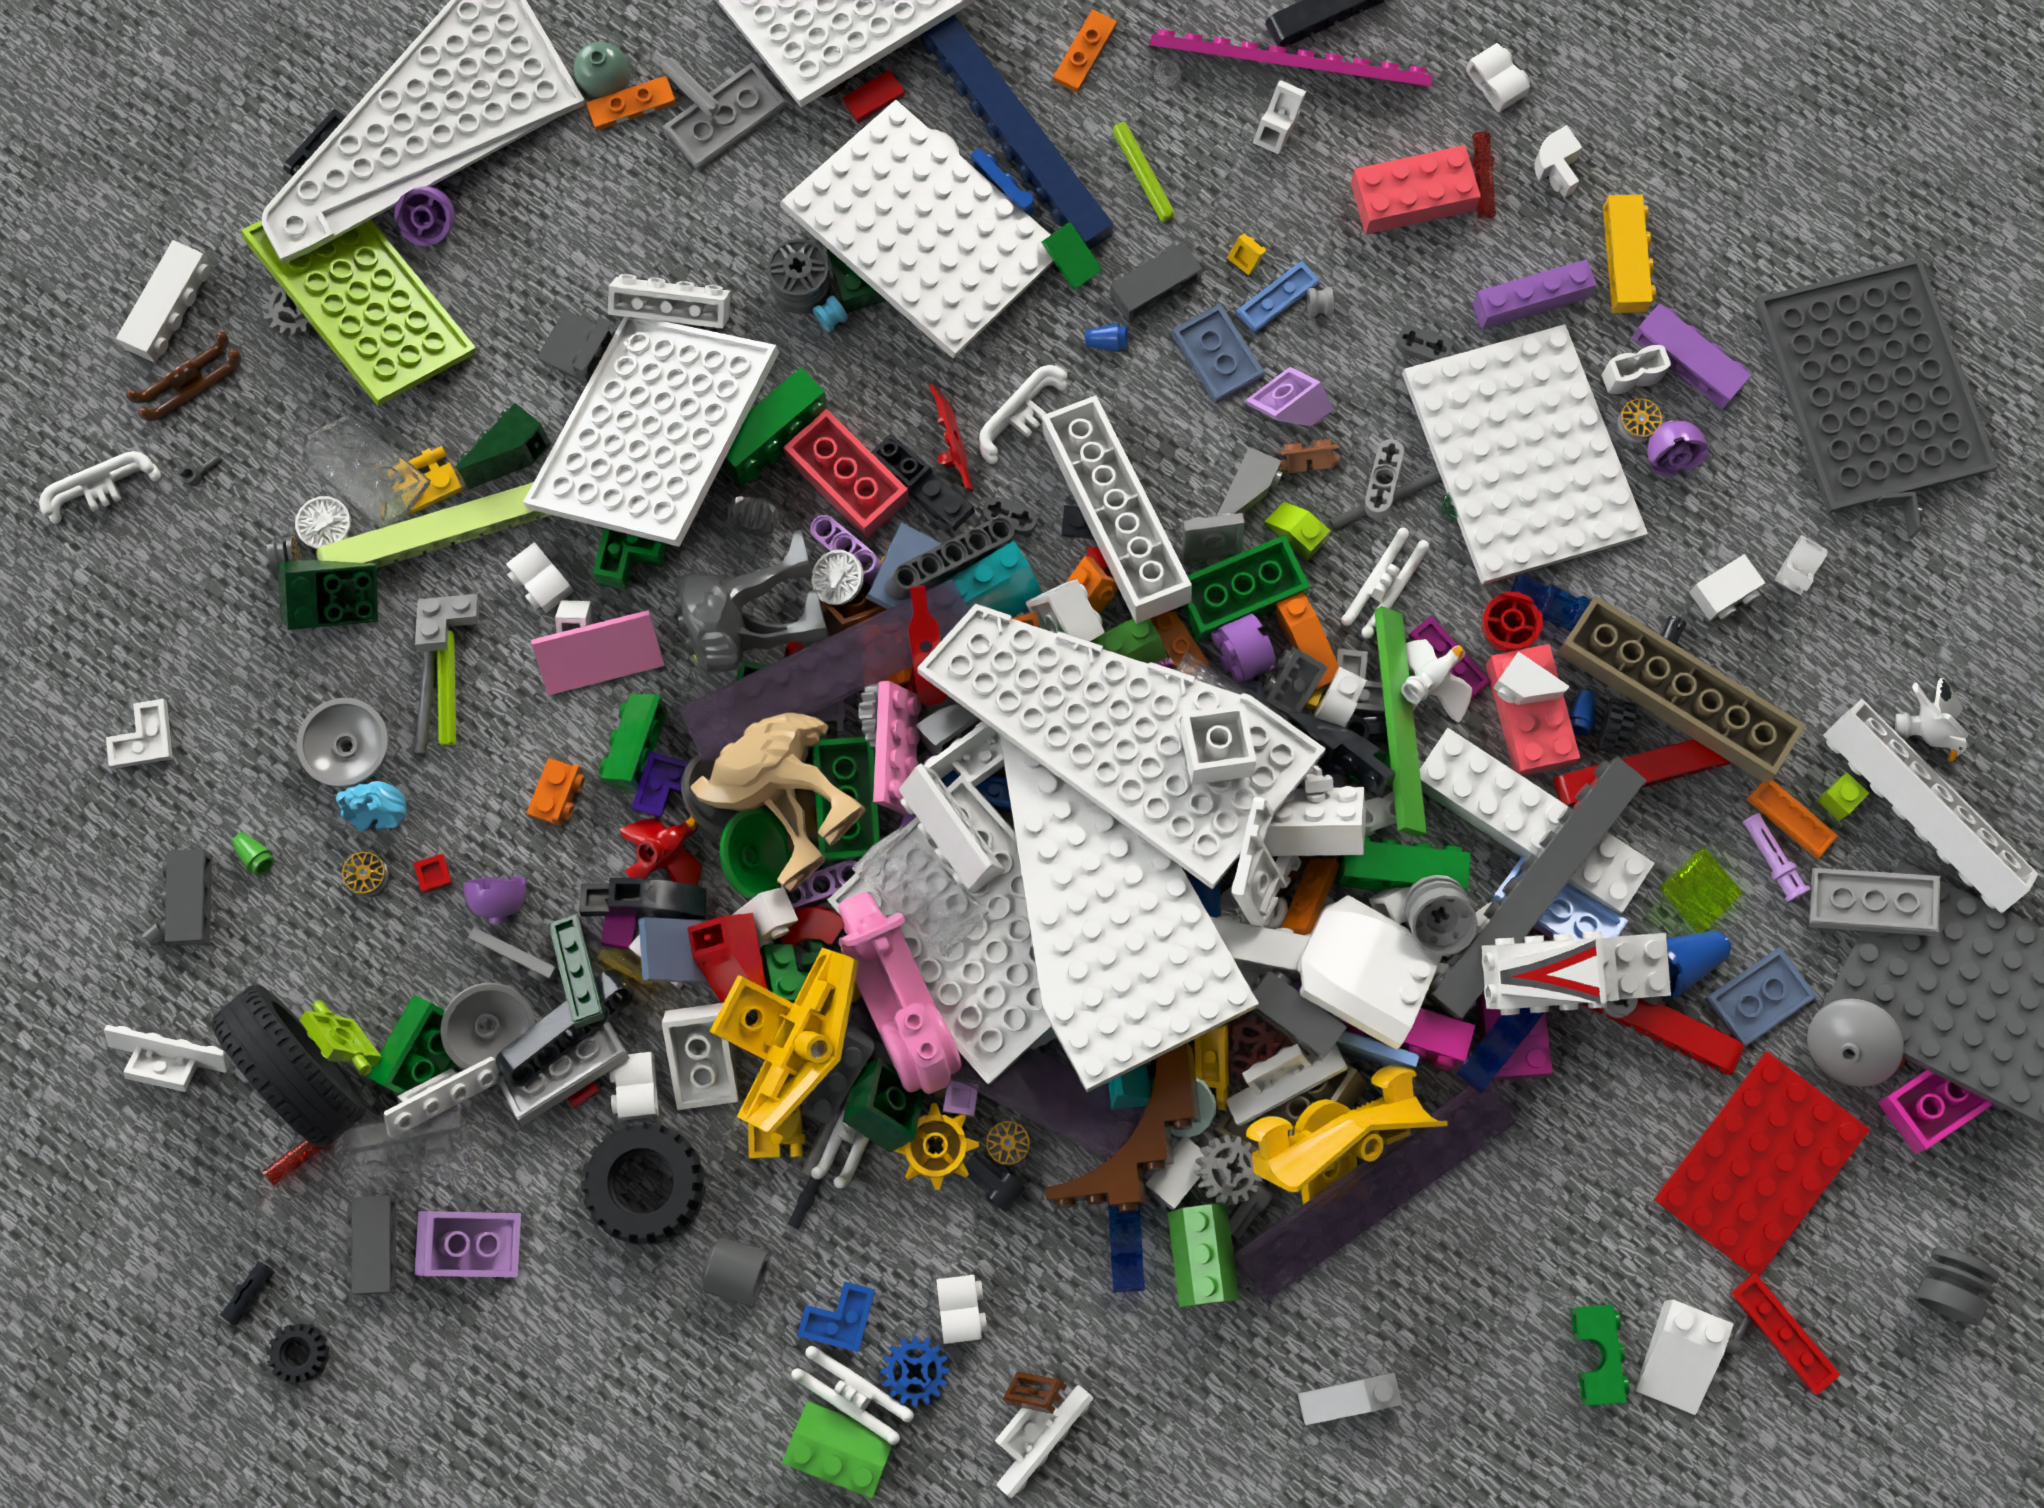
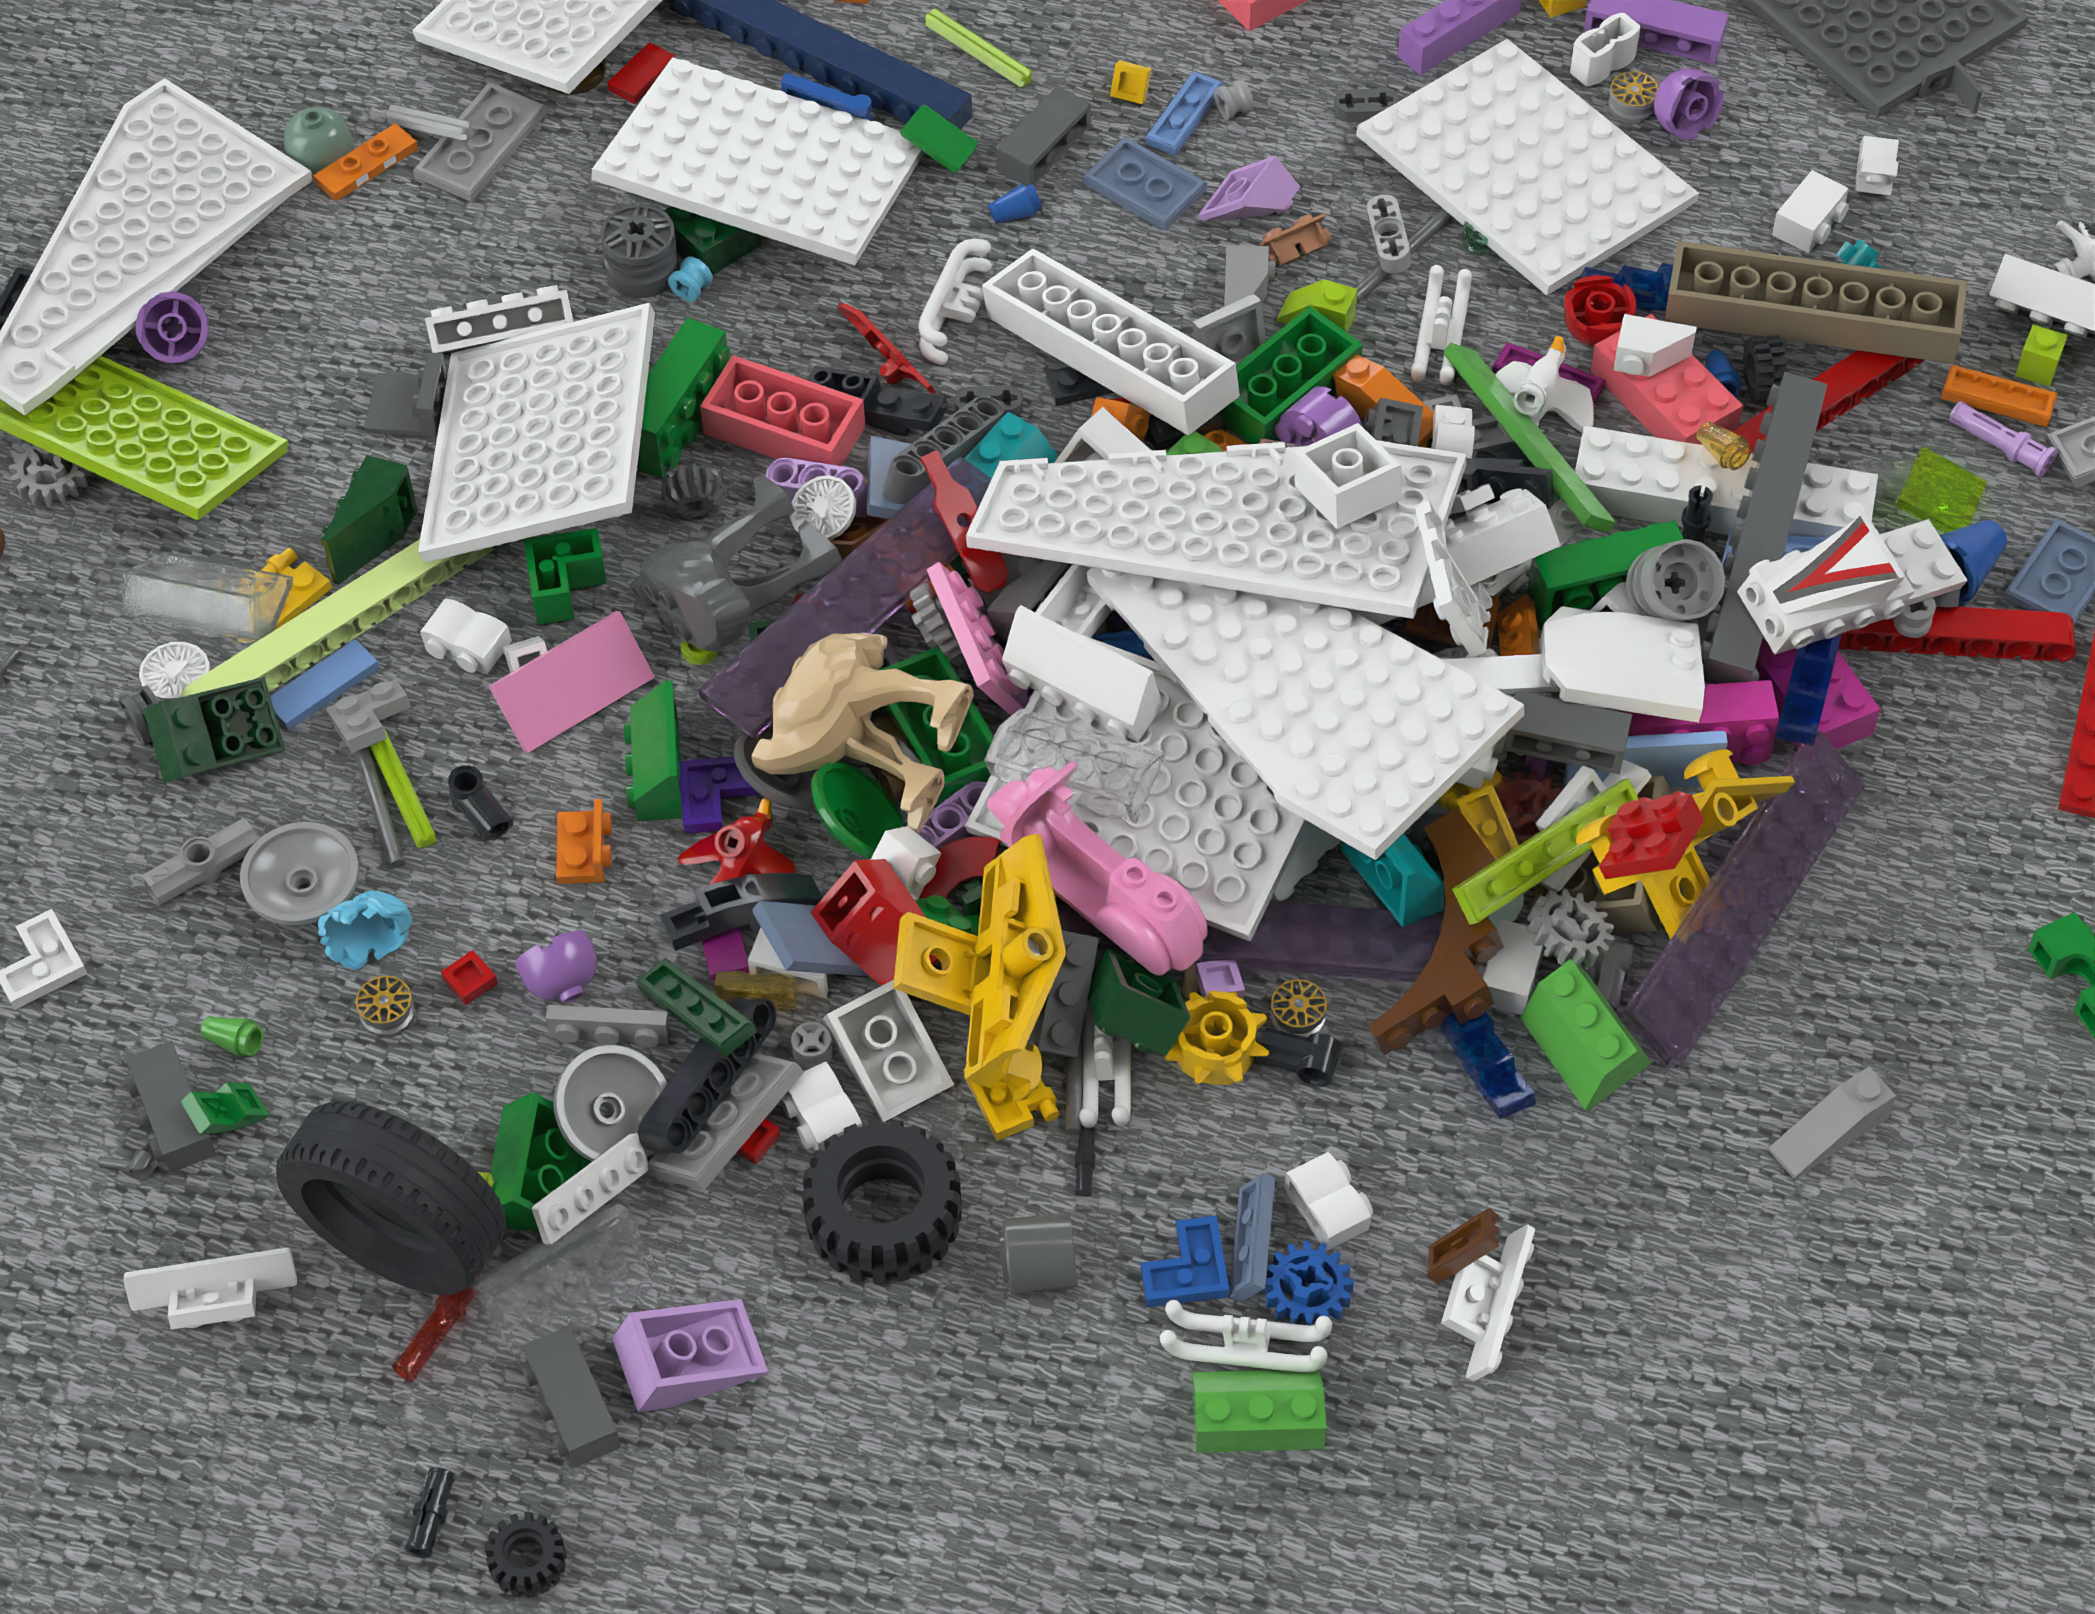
camera: 20 degrees left, 20 degrees down
(221, 918) = (226, 1109): none -> green slope
(263, 702) = (184, 870): none -> light grey piece
(423, 575) = (322, 684): none -> medium blue tile
(494, 731) = (478, 804): none -> black piece
(645, 1026) = (811, 1036): none -> light grey wheel
(893, 1316) = (1252, 1238): none -> sand blue tile
(1236, 1109) = (1537, 856): none -> lime tile
(1296, 1163) = (1651, 835): none -> red plate
(1500, 838) = (1696, 515): none -> black pin
(1542, 797) = (1725, 446): none -> clear yellow cone
(1742, 650) = (1860, 254): none -> teal gear

